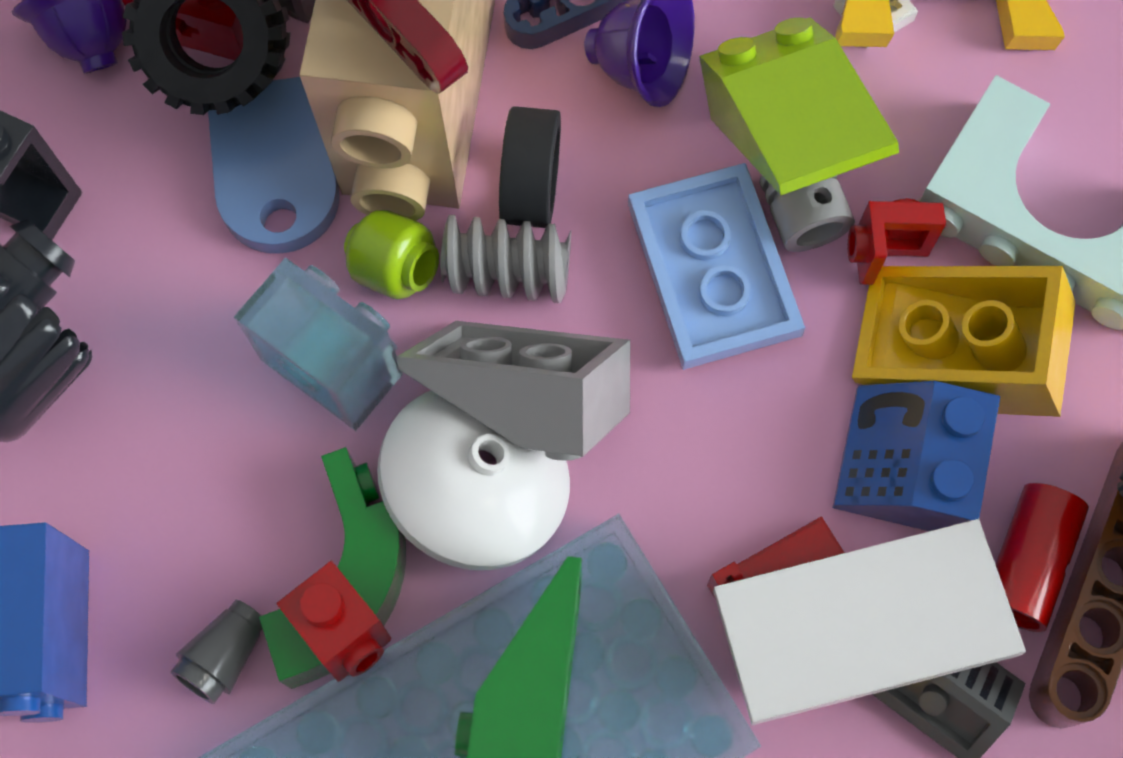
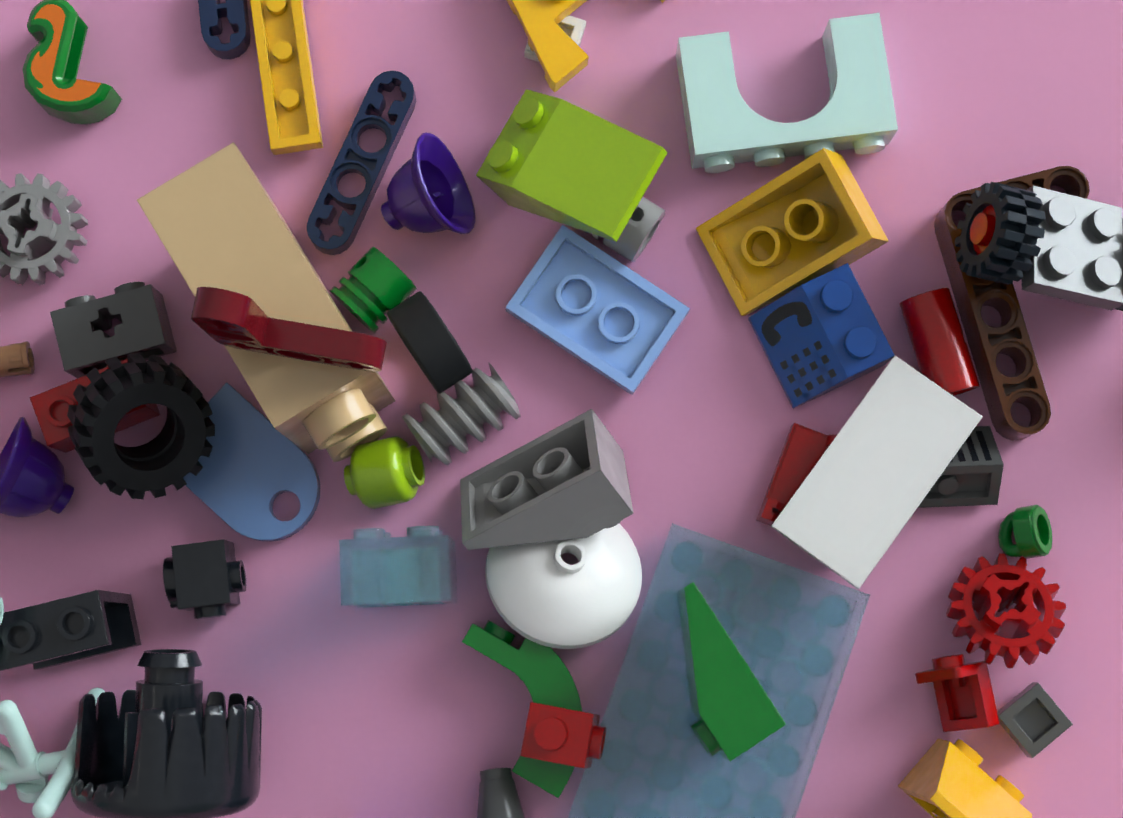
camera: 40 degrees left, 10 degrees up
(152, 219) = (204, 578): none -> black brick
(522, 82) = (373, 288): none -> green piece
(893, 229) = (692, 193): red bracket -> none

